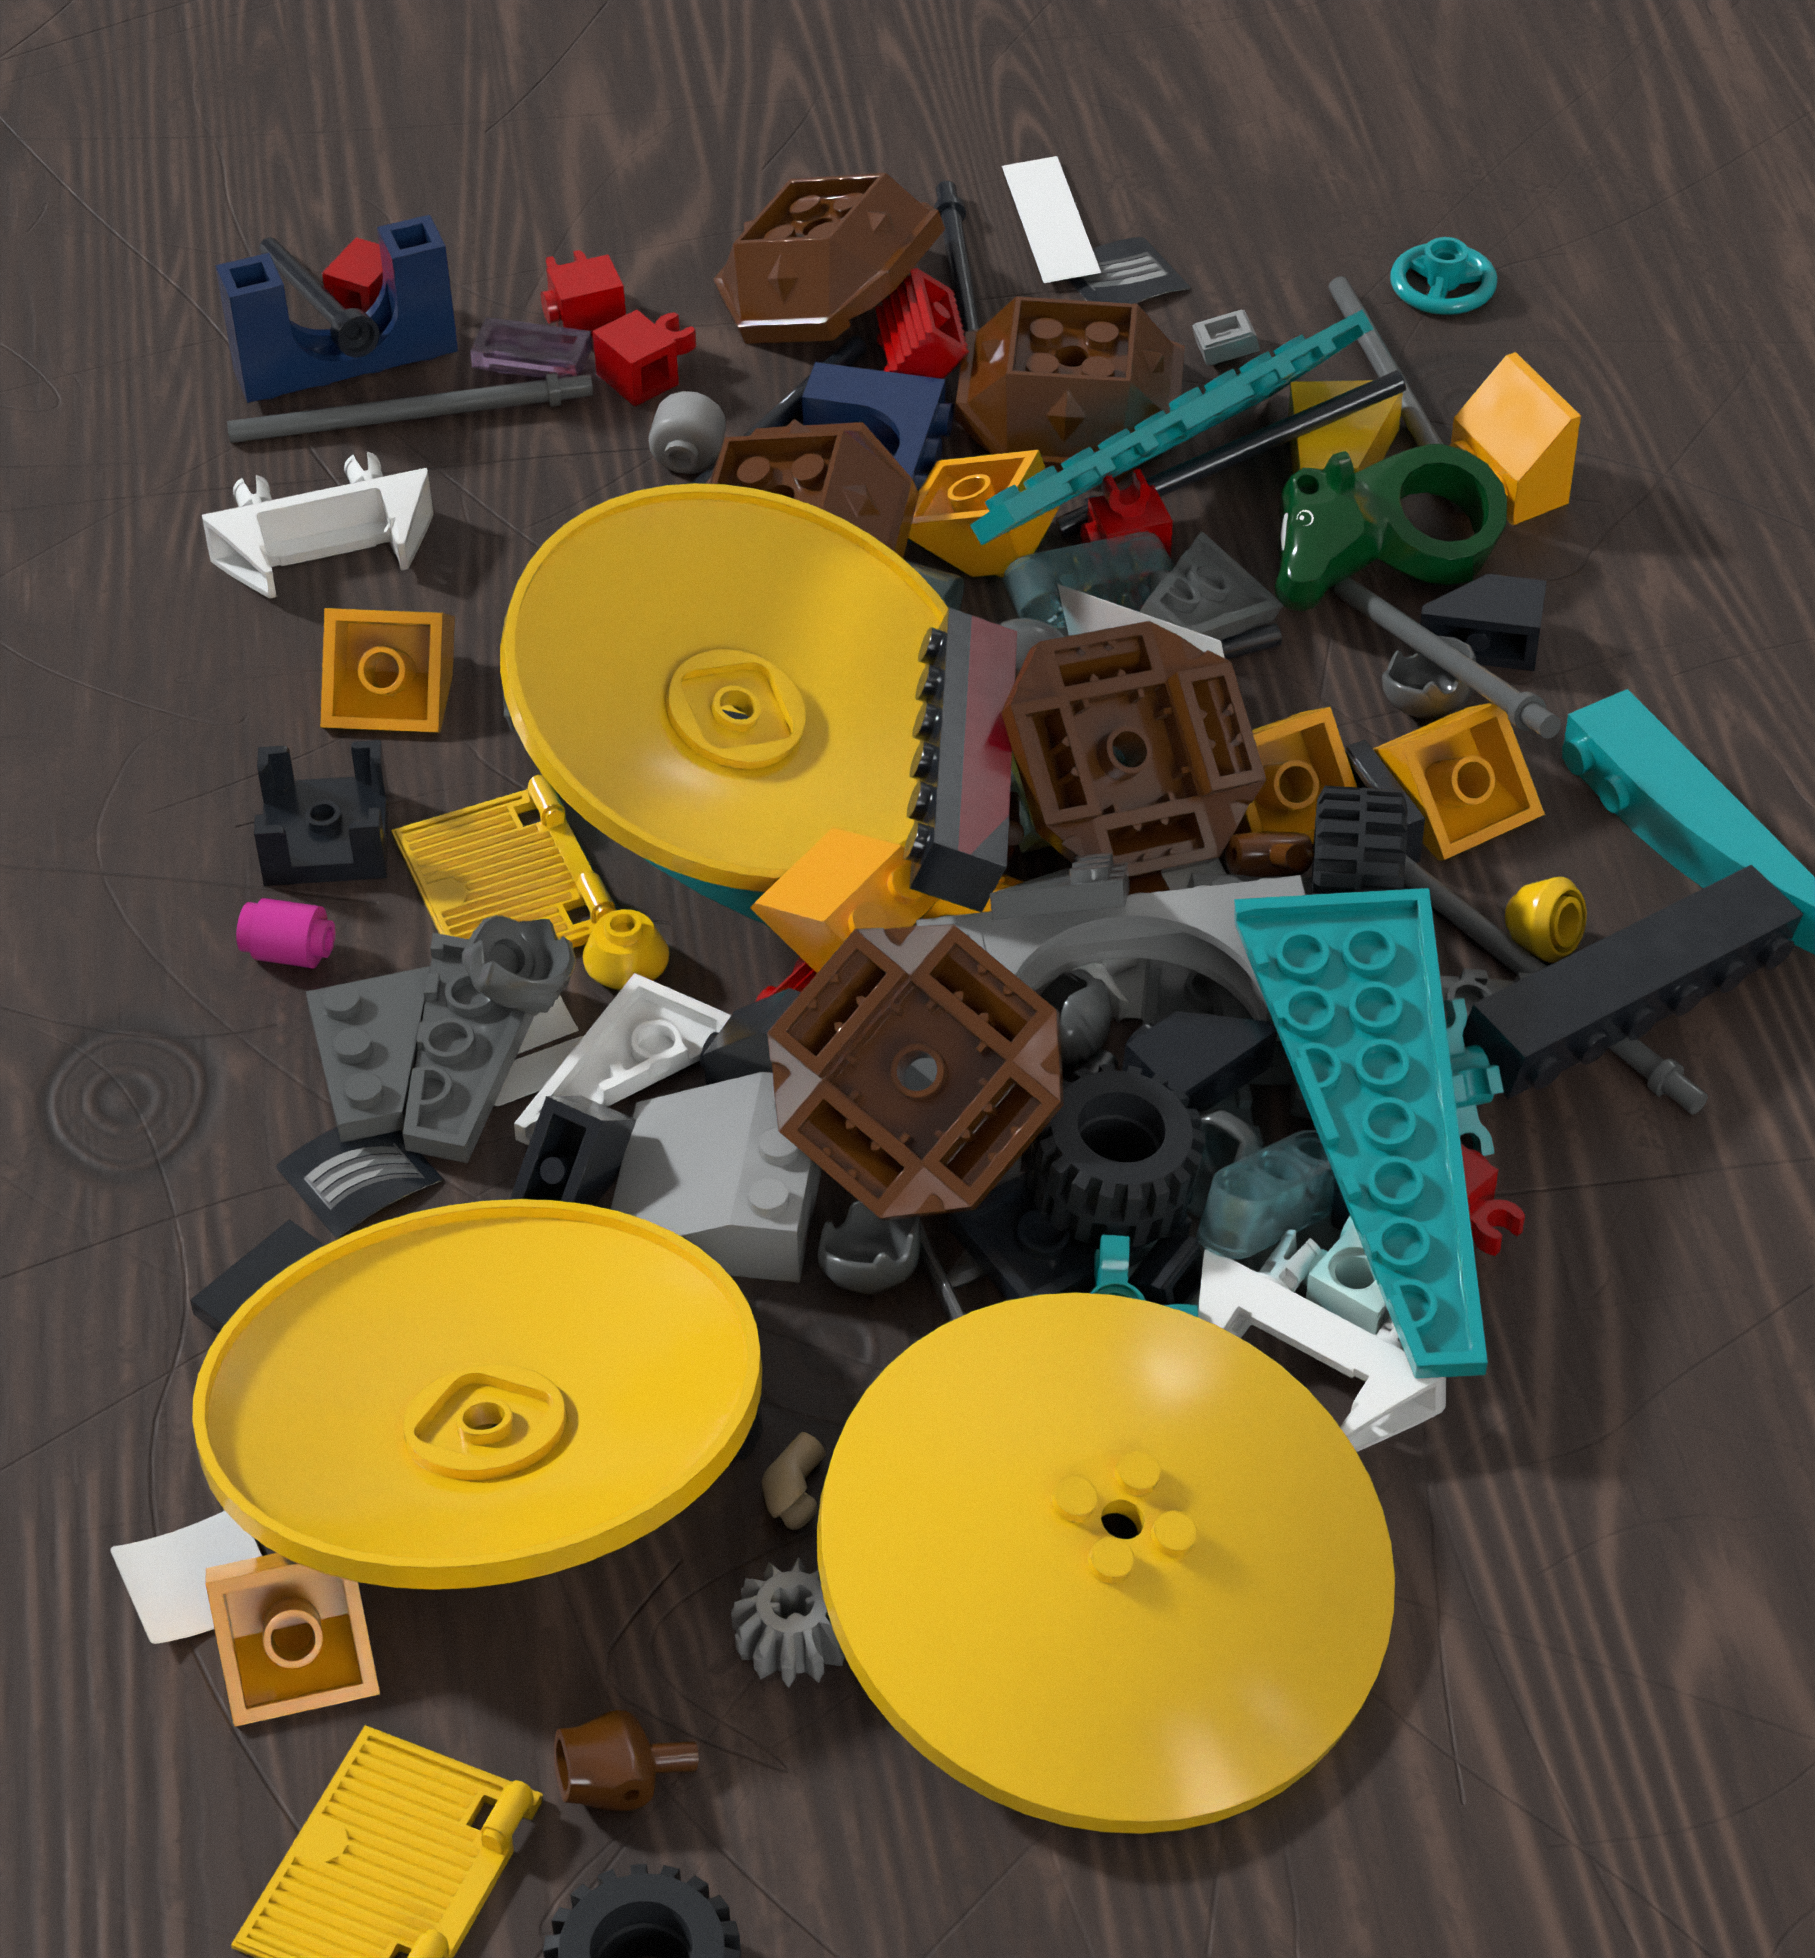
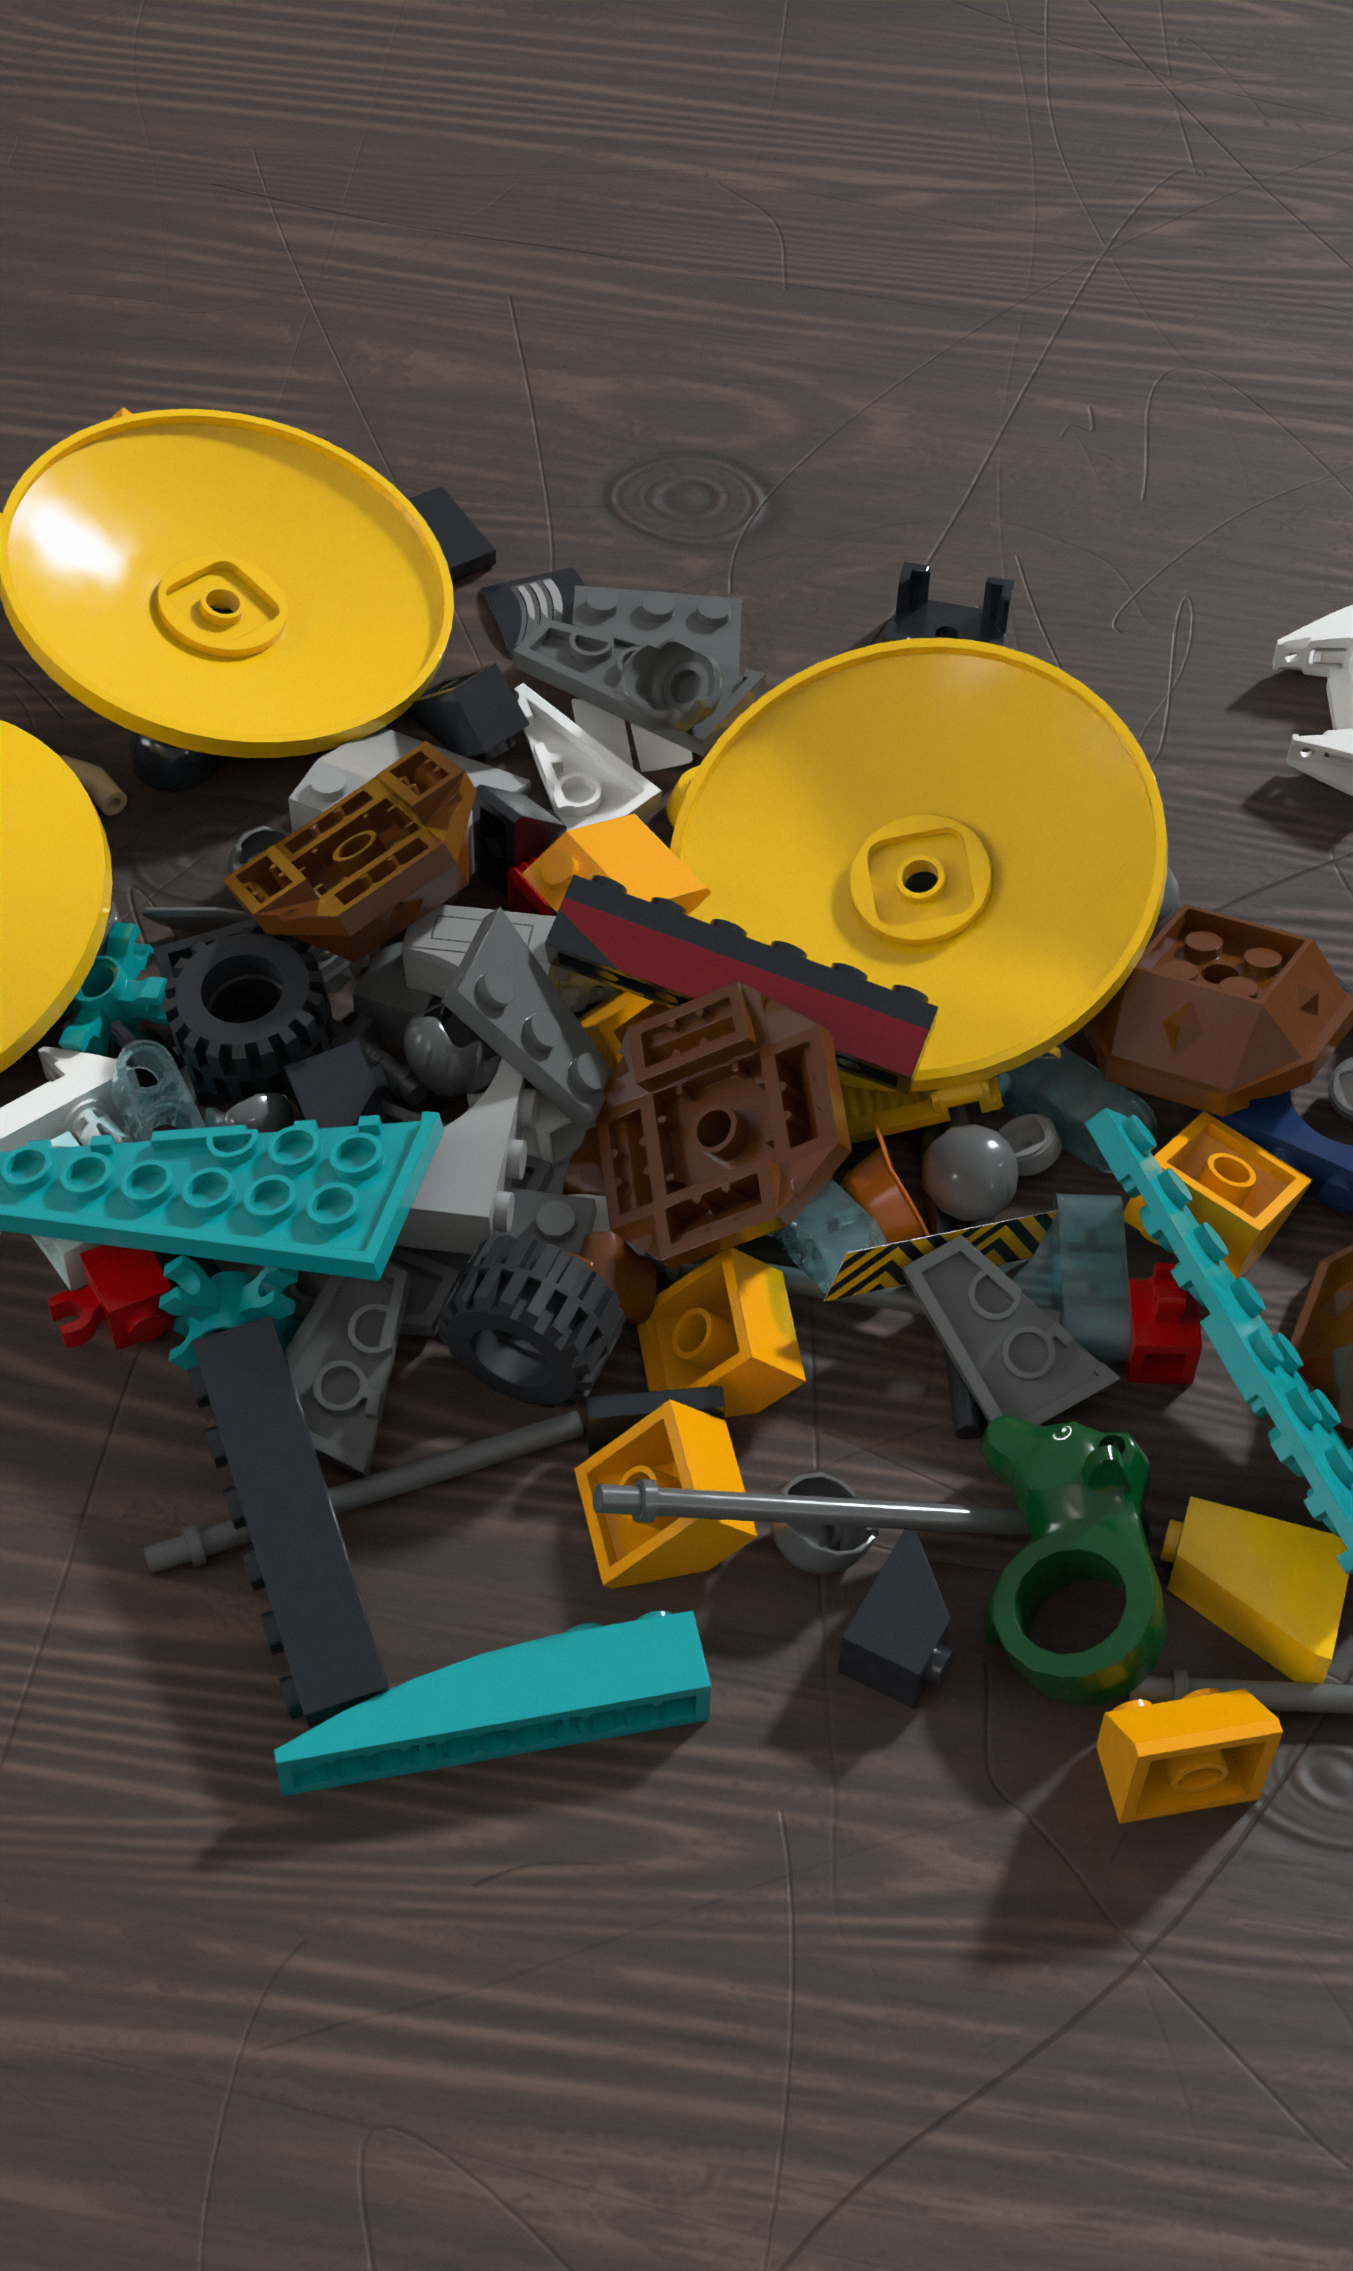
camera: 105 degrees right, 5 degrees up
(285, 932) = (812, 593): dark pink brick -> none
(386, 669) = (1154, 694): light orange slope -> none
(1256, 442) = (1251, 1486): black bar -> none
(1547, 918) = (426, 1500): yellow cone -> none

